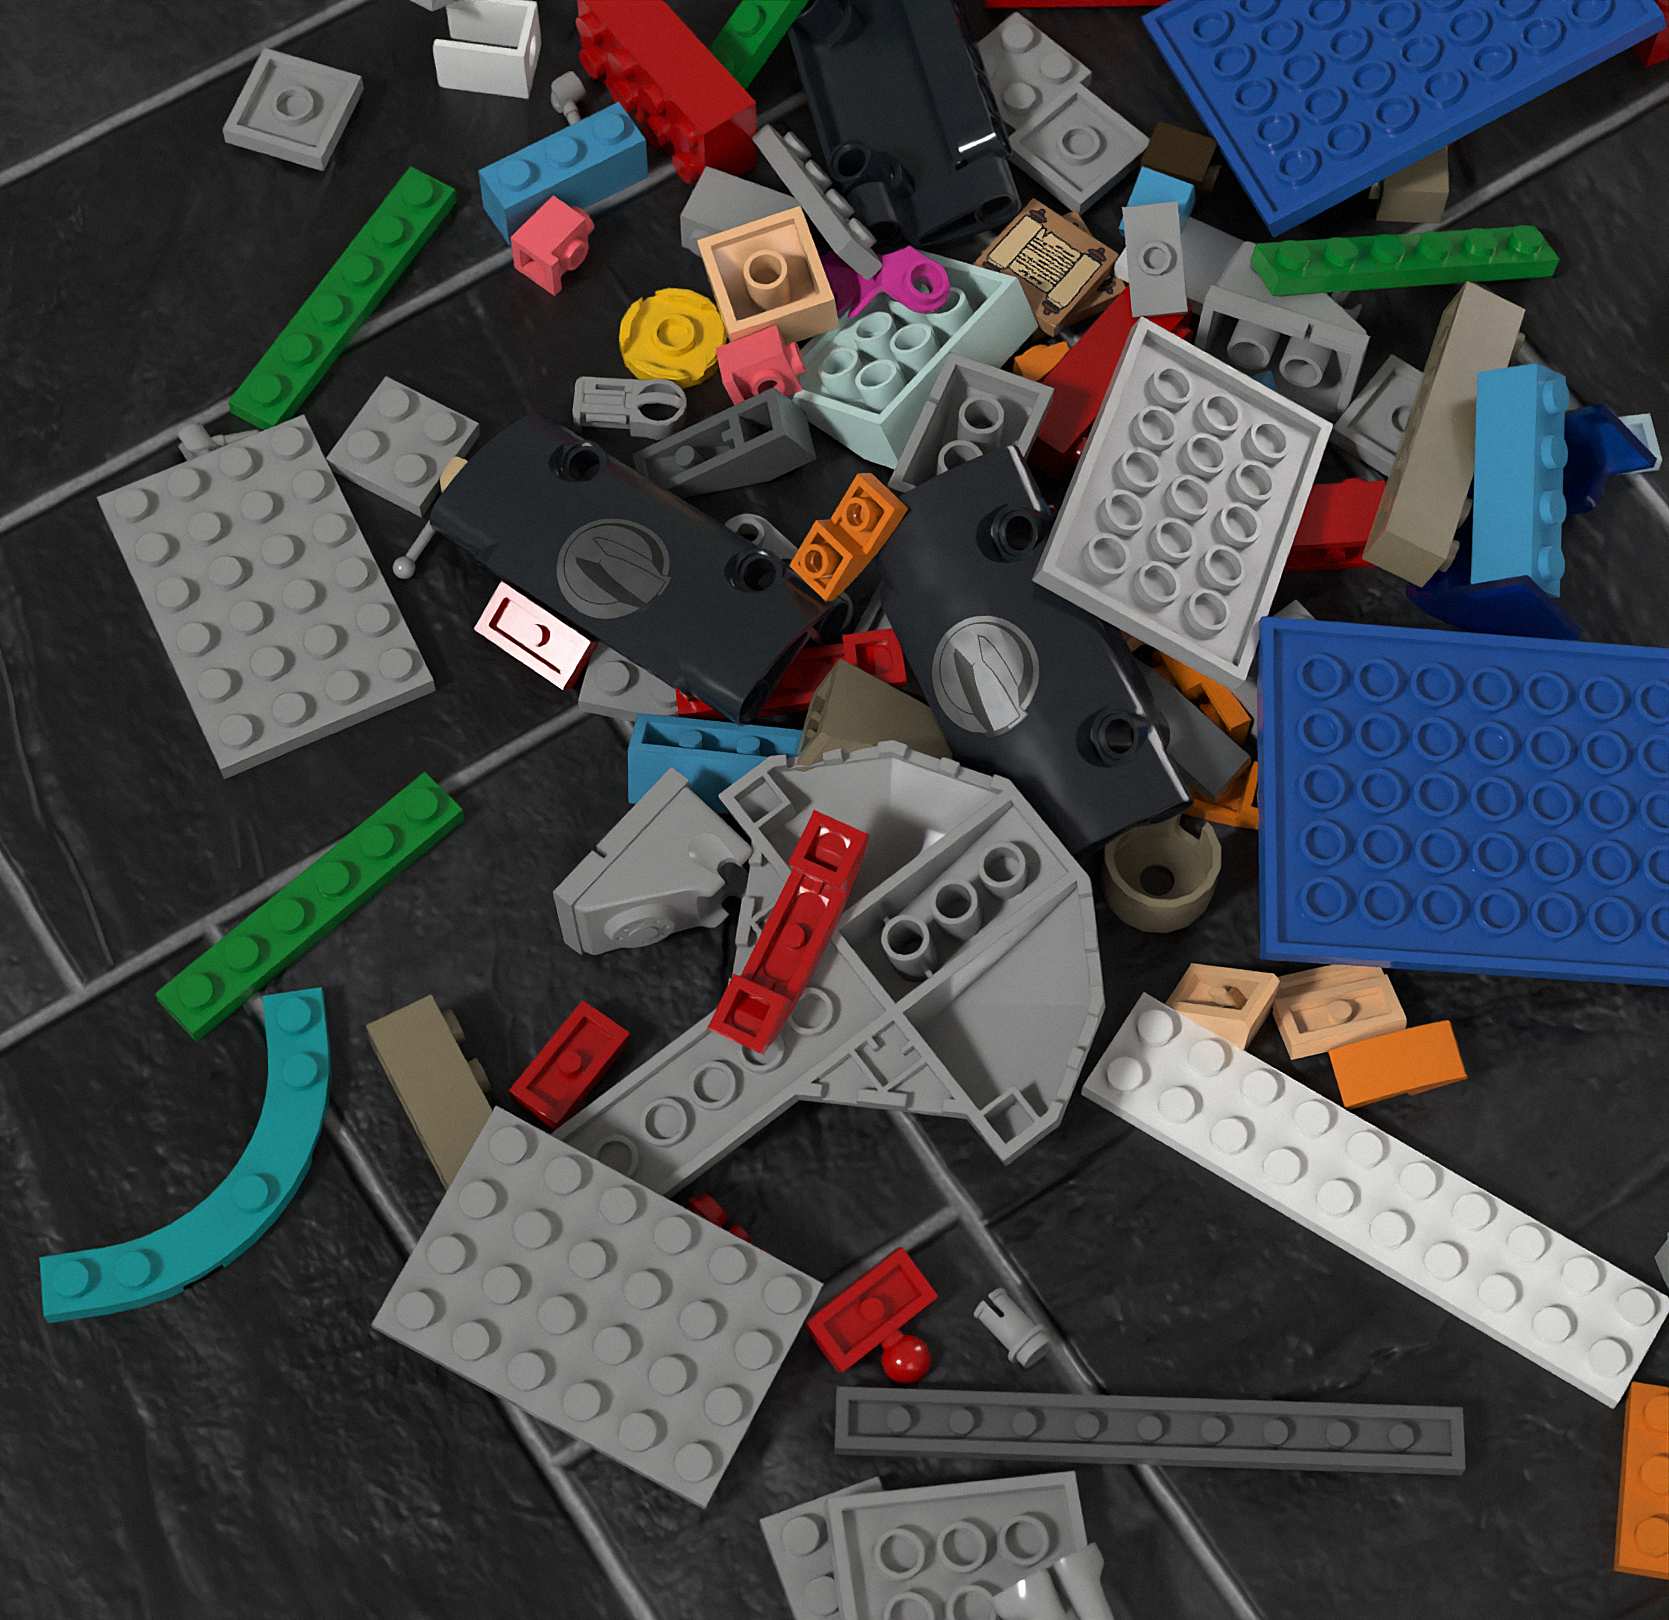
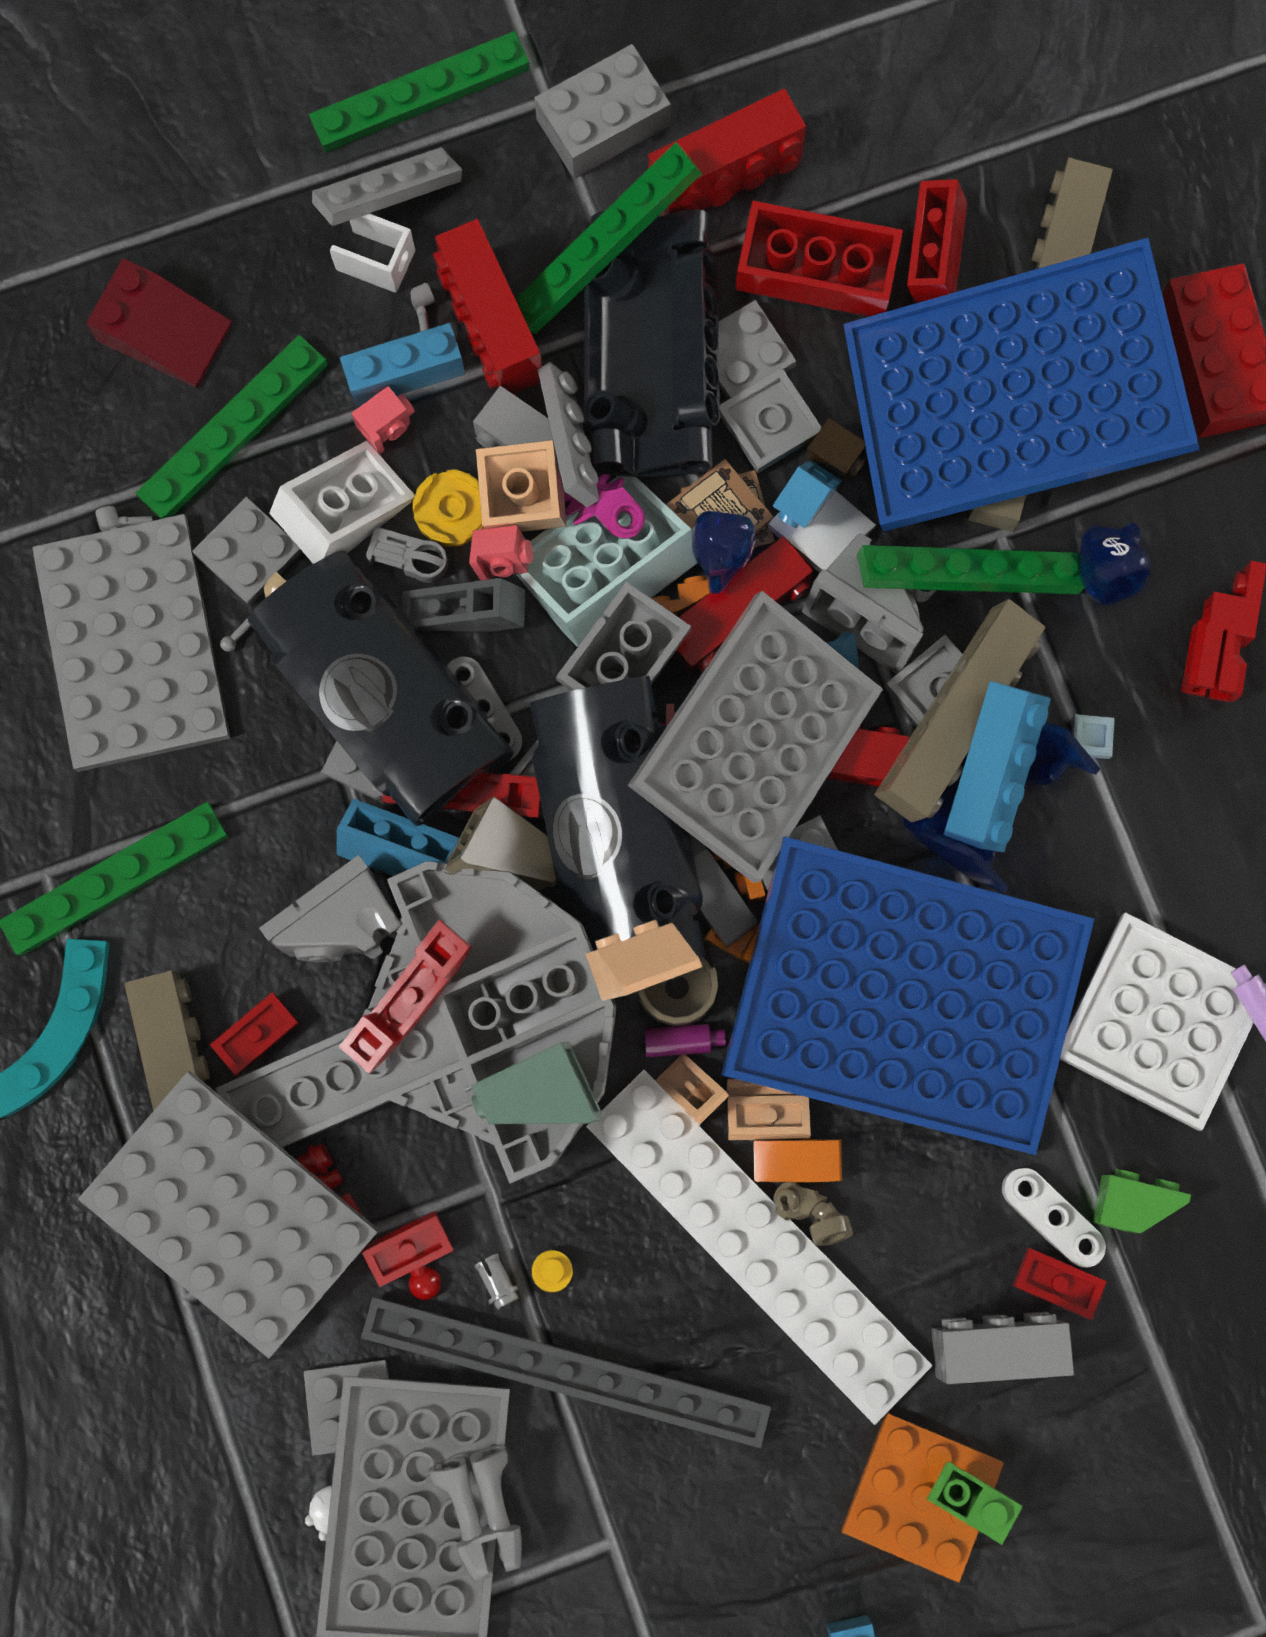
camera: 15 degrees right, 15 degrees up
(211, 189) = (158, 324): none -> dark red slope
(293, 109) = (228, 270): light grey plate -> none
(517, 356) = (340, 502): none -> white slope
(536, 635) = (299, 721): plate -> none
(846, 543) = (520, 712): orange slope -> none
(1015, 1012) = (538, 1091): none -> sand green slope
(1065, 288) = (722, 546): none -> clear blue piece
(1089, 1296) = (552, 1271): none -> yellow plate
(1114, 800) = (641, 960): none -> light nougat slope
(1155, 260) = (791, 537): light grey plate -> none
(1185, 942) = (682, 1040): none -> magenta cylinder
(1419, 1121) = (799, 1203): none -> dark tan arm
(1589, 226) = (1113, 563): none -> clear blue piece

